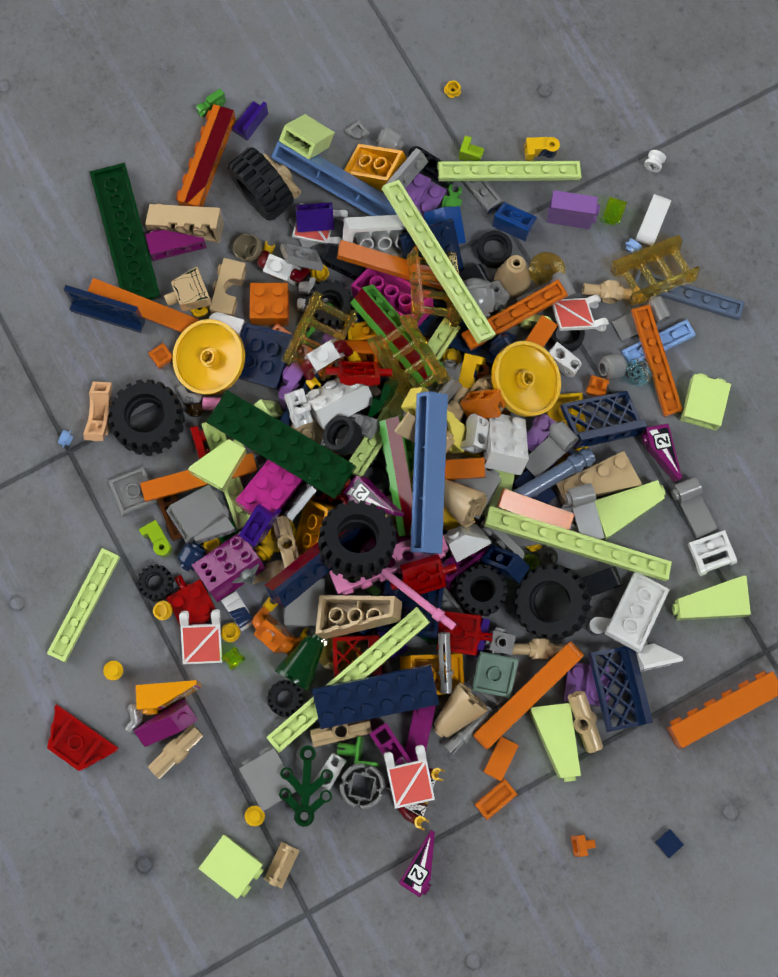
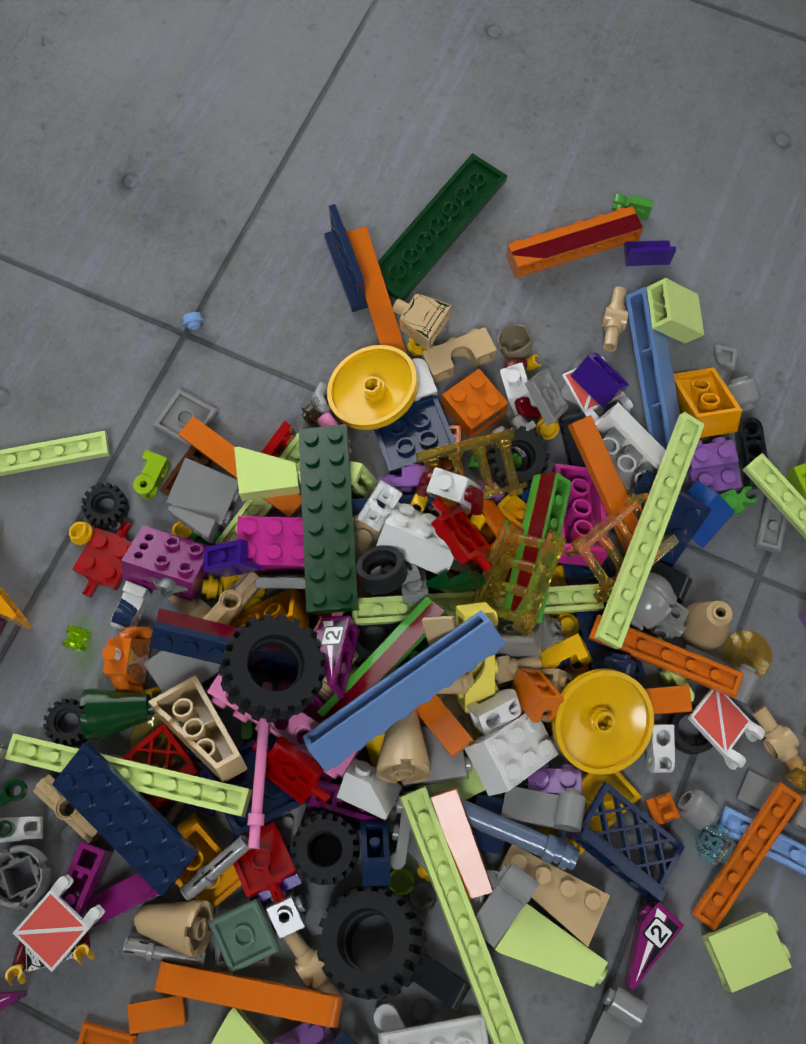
camera: 55 degrees right, 5 degrees down
(98, 421) = (240, 332): light nougat arch -> none
(132, 398) = (261, 348): black tyre -> none
(161, 356) = (342, 345): orange tile -> none
(168, 244) = (458, 269): magenta slope -> none
(188, 220) = (494, 269): tan wedge -> none
(190, 554) = (156, 517): dark blue head -> none
(201, 641) = (73, 594): coral flag -> none
(230, 632) = (102, 615): yellow plate -> none
(260, 183) = (586, 301): black tyre -> none
(355, 750) = (59, 842): bright green bracket -> none
(410, 168) = (728, 431): light grey plate -> none
(497, 236) = (729, 566): black tyre -> none
(514, 221) = (769, 580): blue slope -> none

